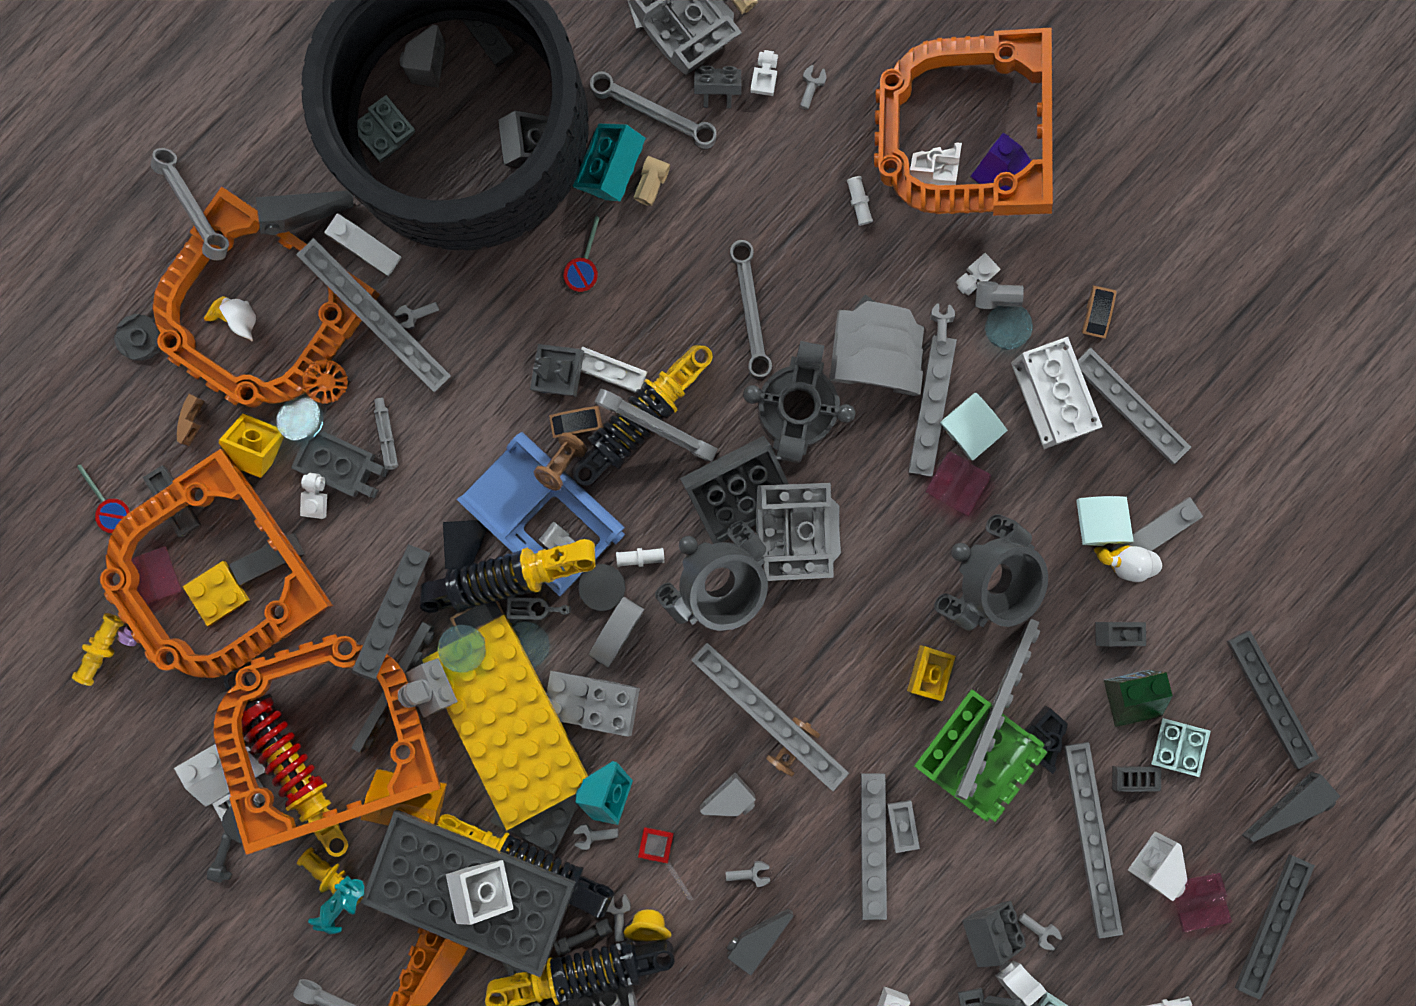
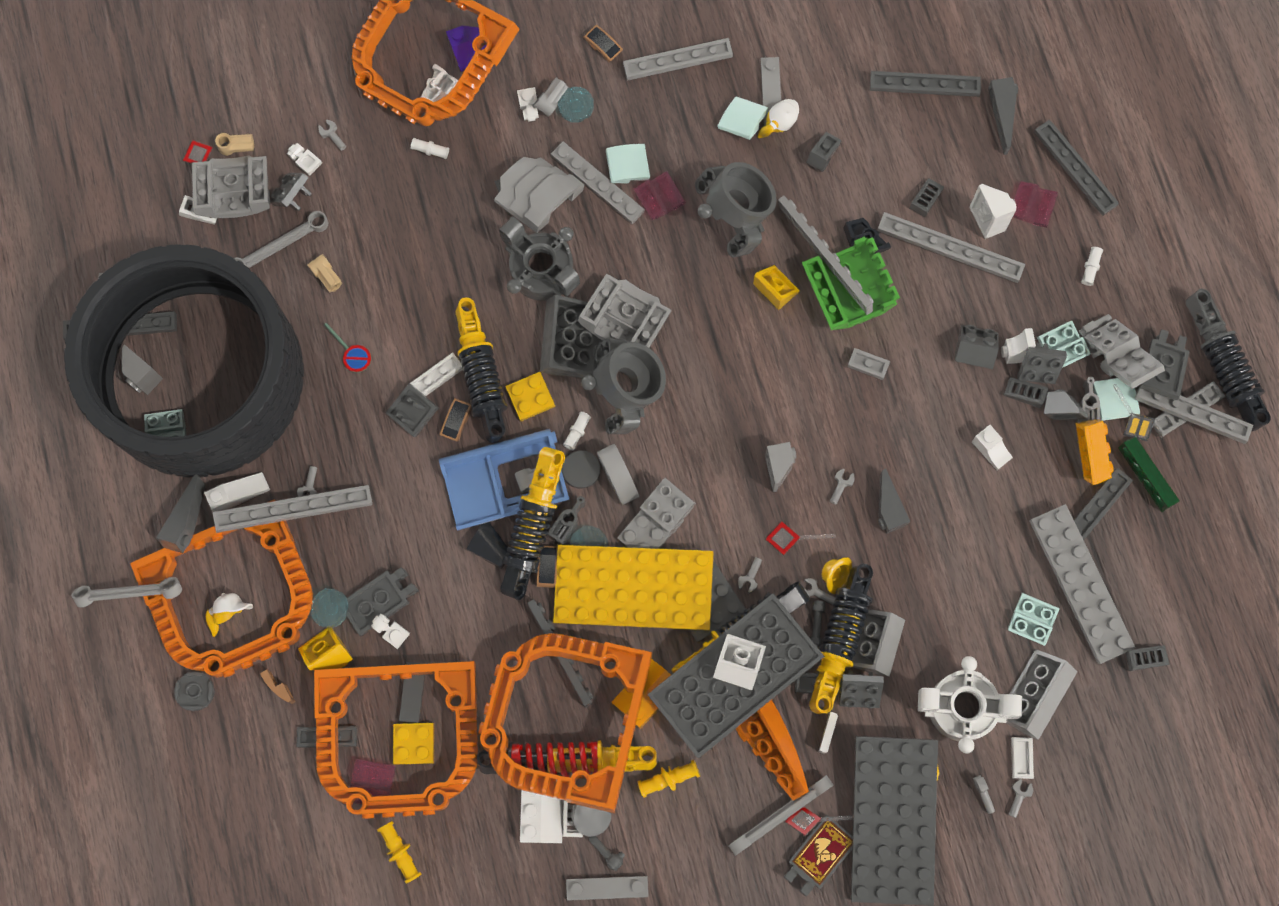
camera: 55 degrees left, 10 degrees down
(110, 510) = (307, 787): piece -> none
(125, 636) = (403, 824): lavender plate -> none
(187, 880) = (607, 888): none -> light grey plate
(325, 381) = (314, 573): orange wheel -> none
(345, 898) = (686, 766): teal piece -> none
(385, 434) = (379, 555): light grey piece -> none
(390, 613) = (507, 618): dark grey plate -> none
(427, 689) = (577, 623): light grey brick -> none
(461, 648) = (563, 586): clear light blue tile -> none
(520, 136) = (240, 338): light grey slope -> none
(550, 475) = (471, 431): medium nougat hose -> none
(605, 793) = (725, 547): teal slope -> none
(609, 161) = (294, 292): teal slope -> none
(616, 404) = (459, 373): light grey piece -> none
(649, 483) = (530, 396): none -> yellow plate
(750, 308) = (455, 260): light grey piece -> none
(770, 717) = (739, 404): light grey plate -> none
(785, 765) = (770, 403): medium nougat hose -> none
(873, 846) = (870, 392): light grey plate -> none
(942, 321) = (545, 143): light grey bar -> none
(1042, 932) = (993, 317): light grey bar -> none
(1056, 393) = (639, 96): white hose -> none
(1138, 696) = (872, 162): dark green slope -> none
(1180, 747) = (922, 158): light aqua slope -> none

